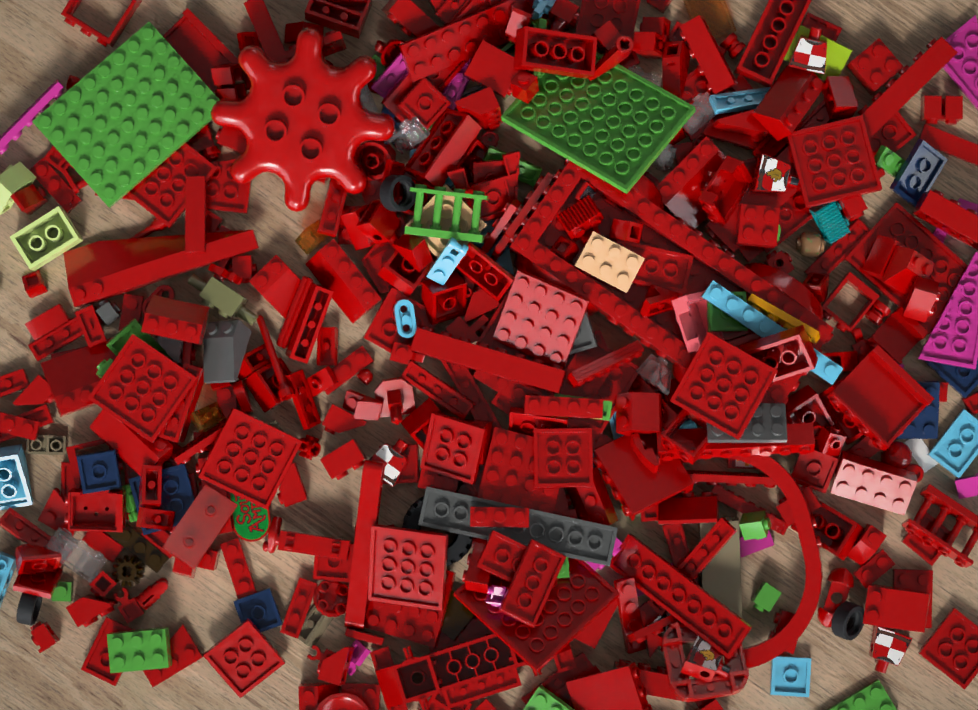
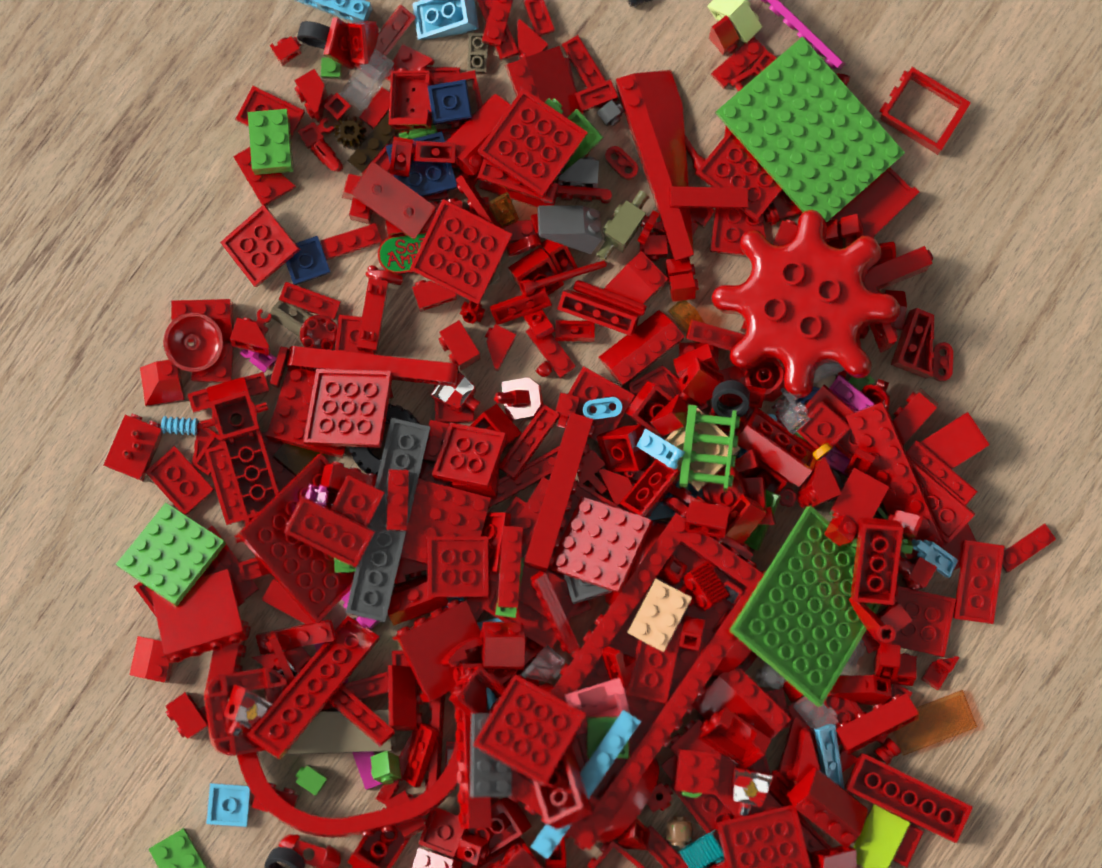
camera: 85 degrees right, 5 degrees down
(34, 284) = (639, 41): red slope -> none
(46, 238) = (684, 52): yellowish green brick -> none
(47, 321) = (601, 53): red slope -> none
(130, 309) = (613, 136): red plate -> none
(175, 319) = (601, 176): red slope -> none
(276, 241) = (681, 279): none -> red piece
(362, 405) = (513, 365): red slope -> none
(447, 105) = (823, 450): none -> light orange tile
(457, 68) = (861, 460): none -> red tile
(515, 182) = (744, 518): none -> red brick
(516, 215) = (707, 518): none -> red brick
(742, 492) = (420, 755): none -> red plate
(781, 317) = (600, 795): light orange plate -> none
(810, 52) = (880, 832): torso -> none

